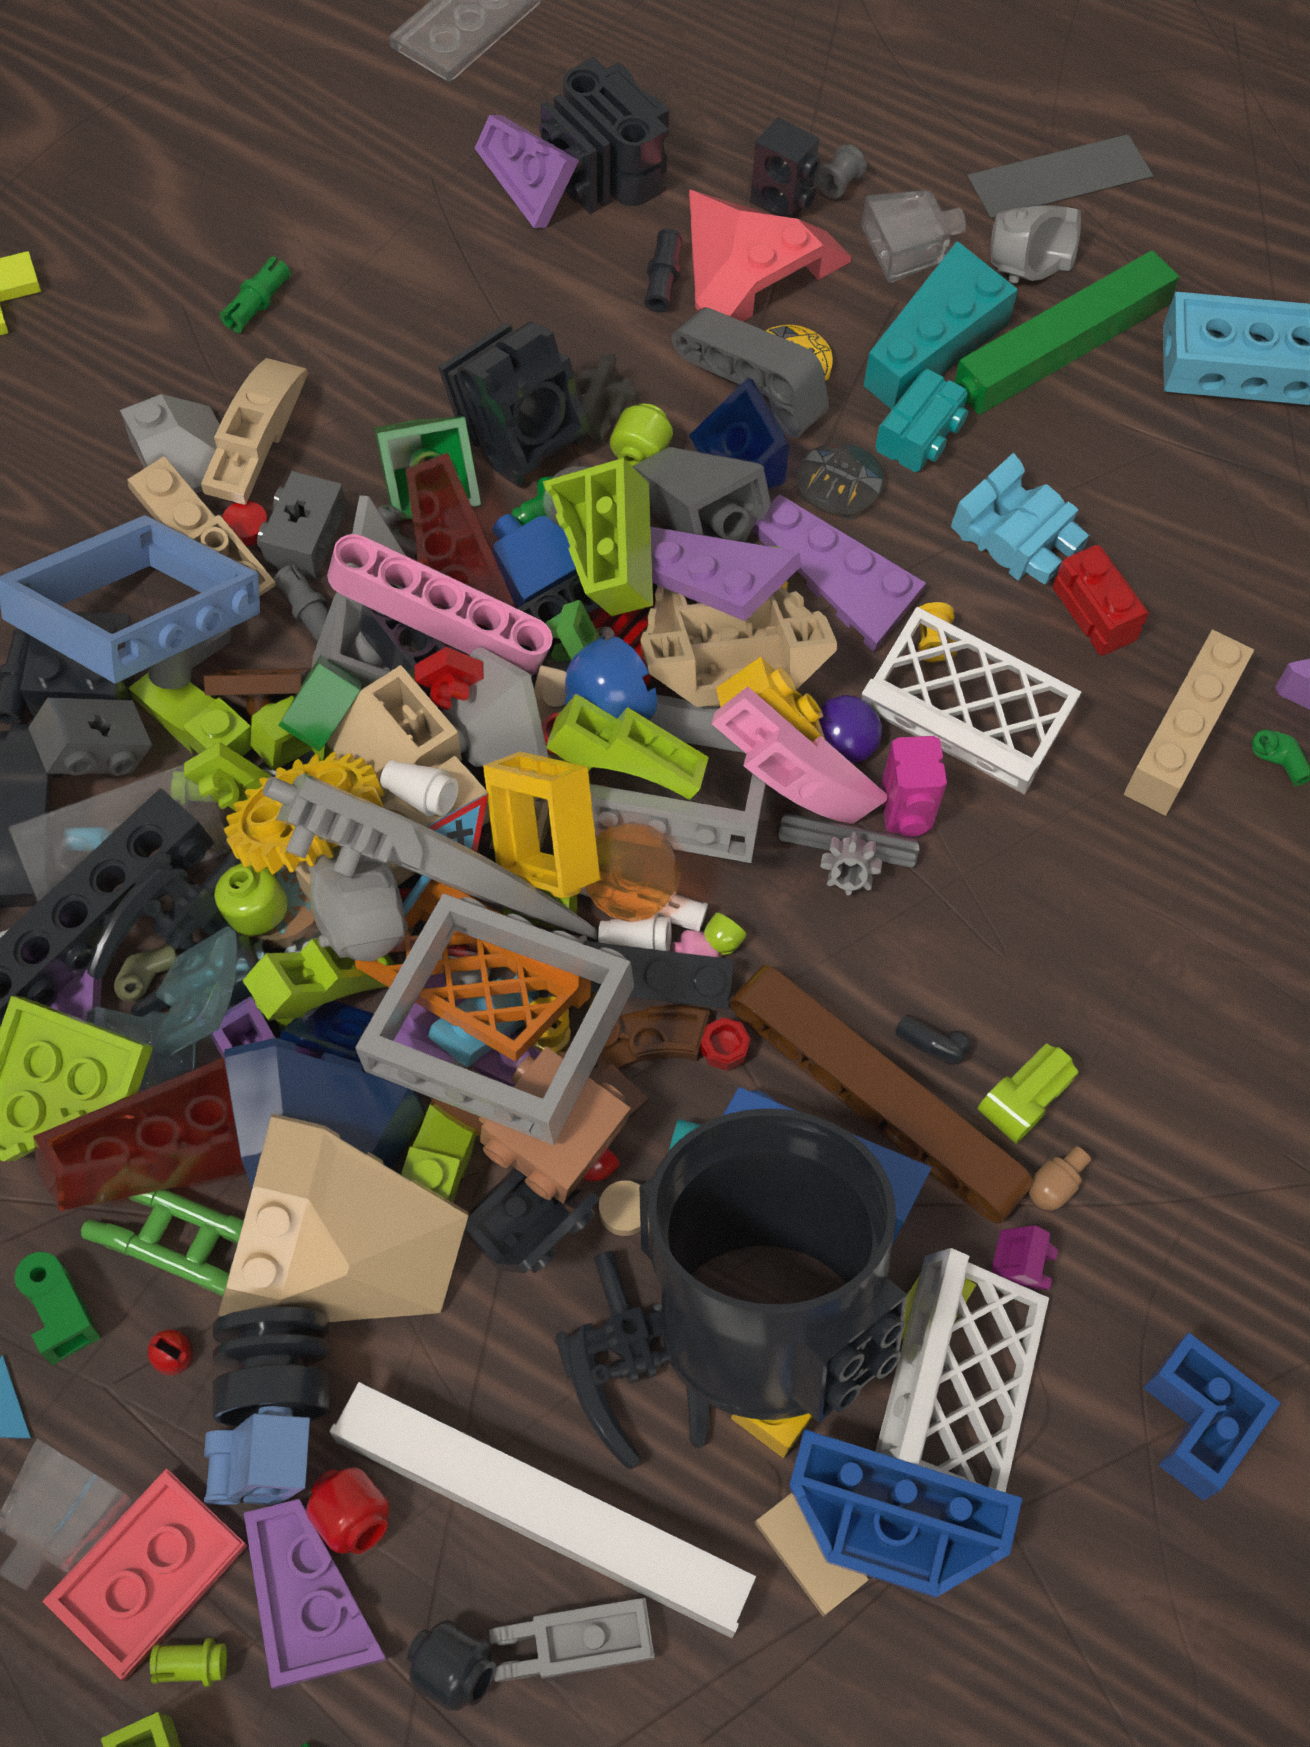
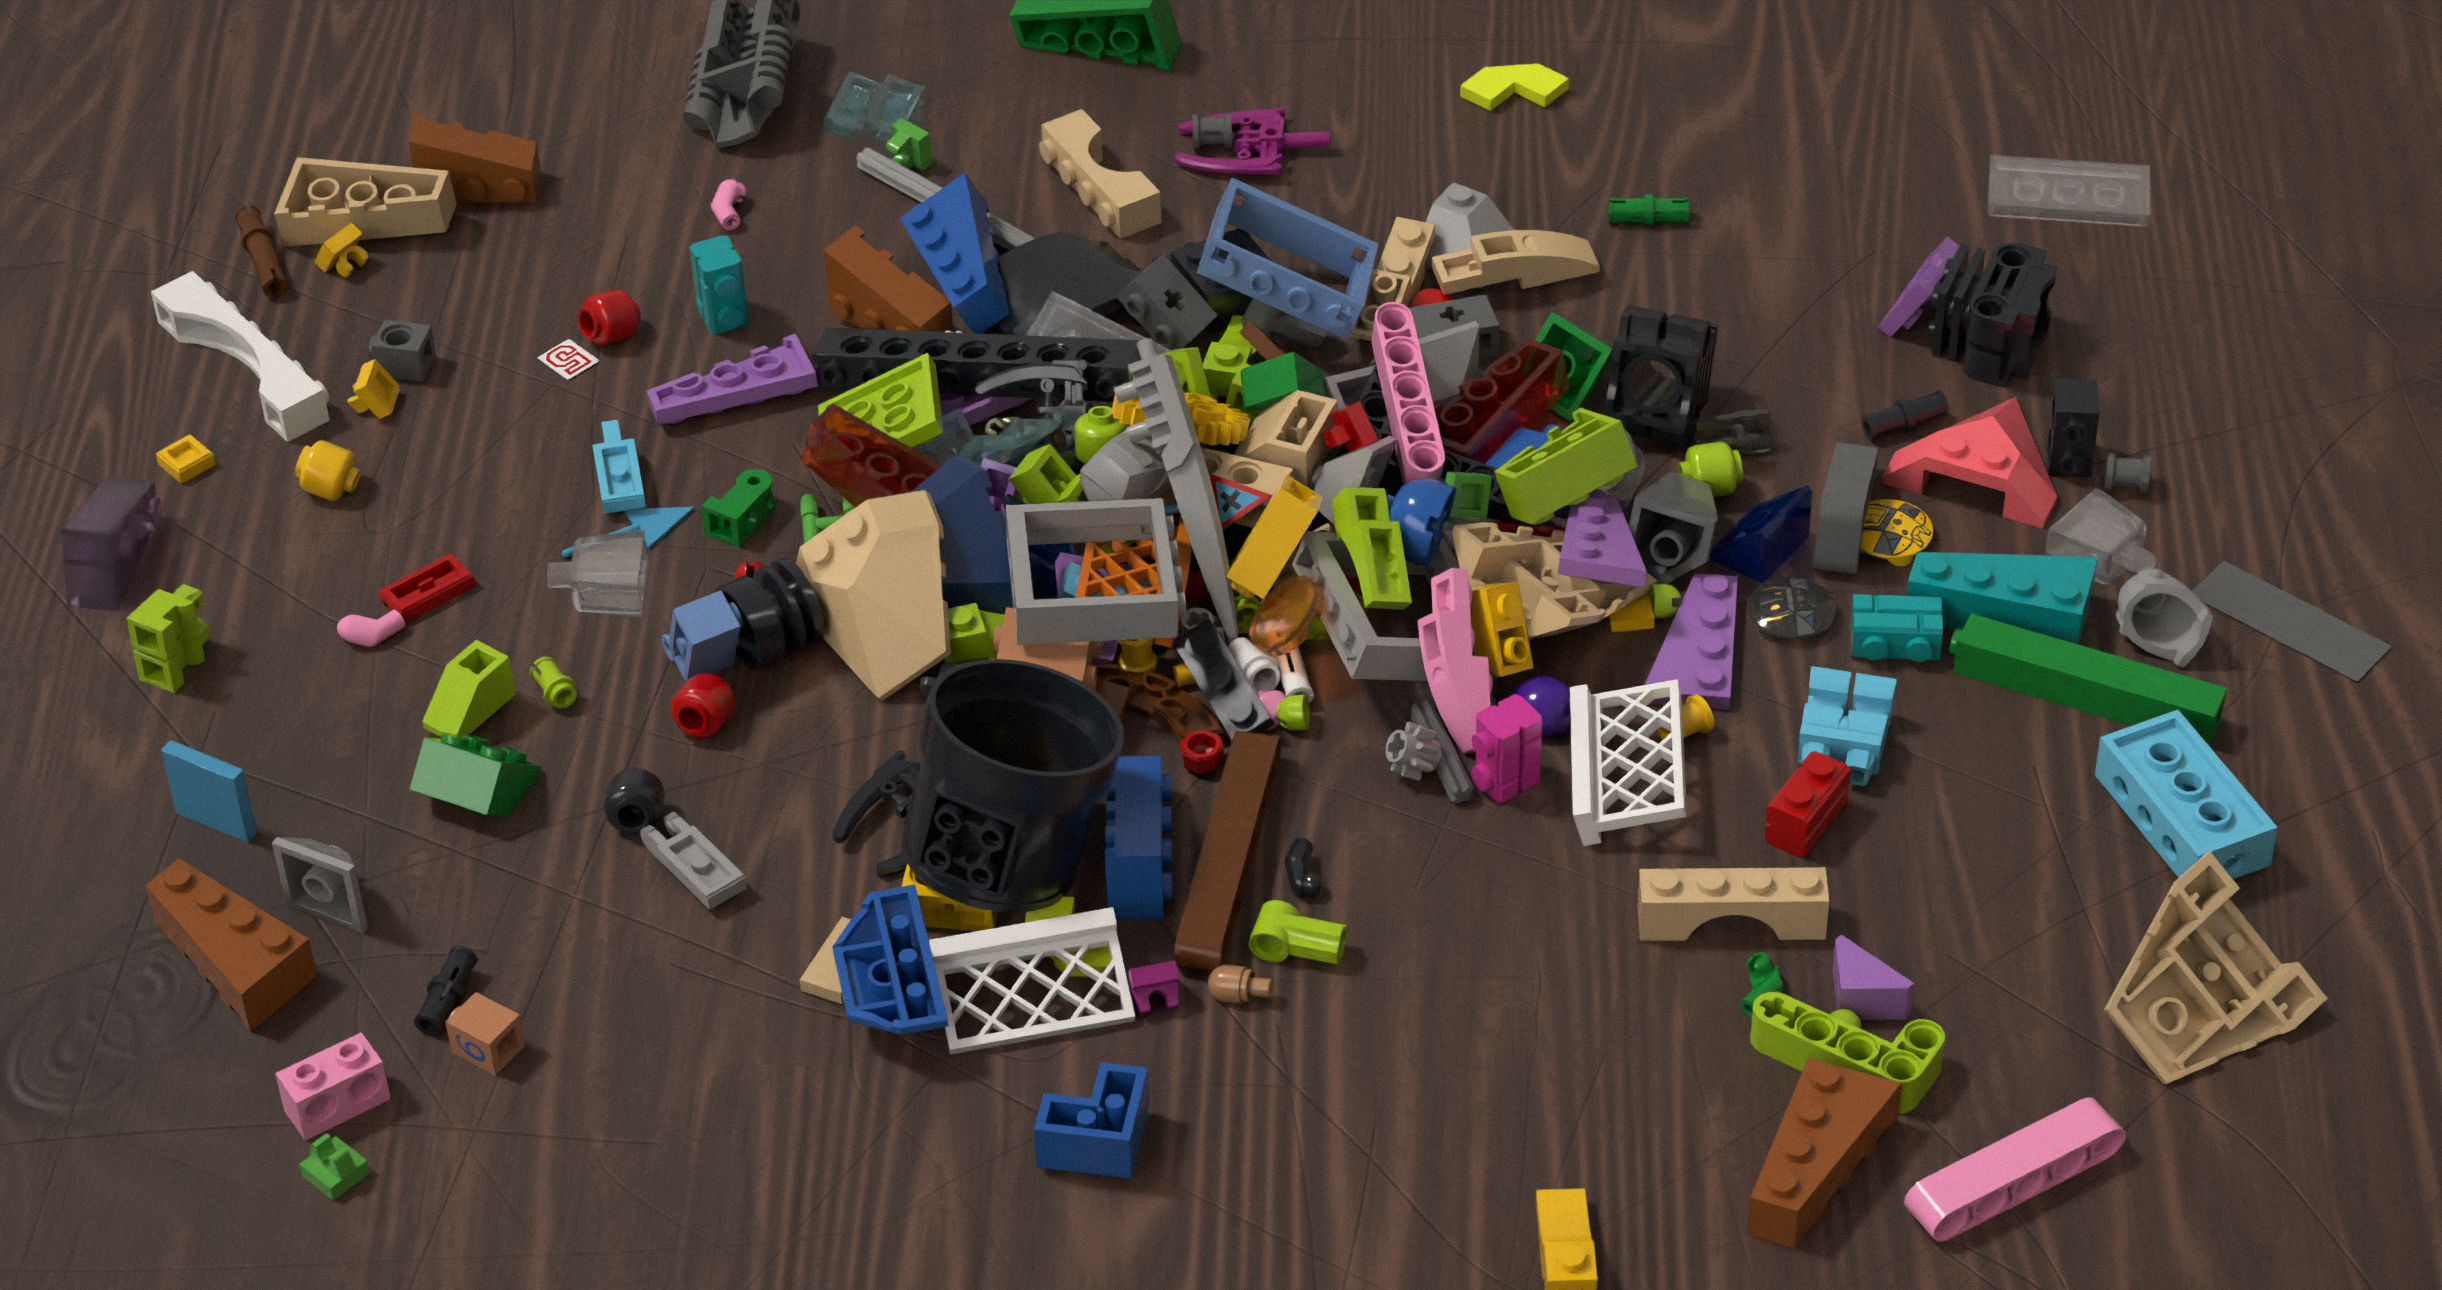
camera: 65 degrees right, 20 degrees down
(144, 1574) = (599, 639): coral tile -> none
(303, 1601) = (628, 717): medium lavender wing -> none
(422, 787) = (1243, 456): white cone -> none
(544, 1509) = (771, 805): white tile -> none

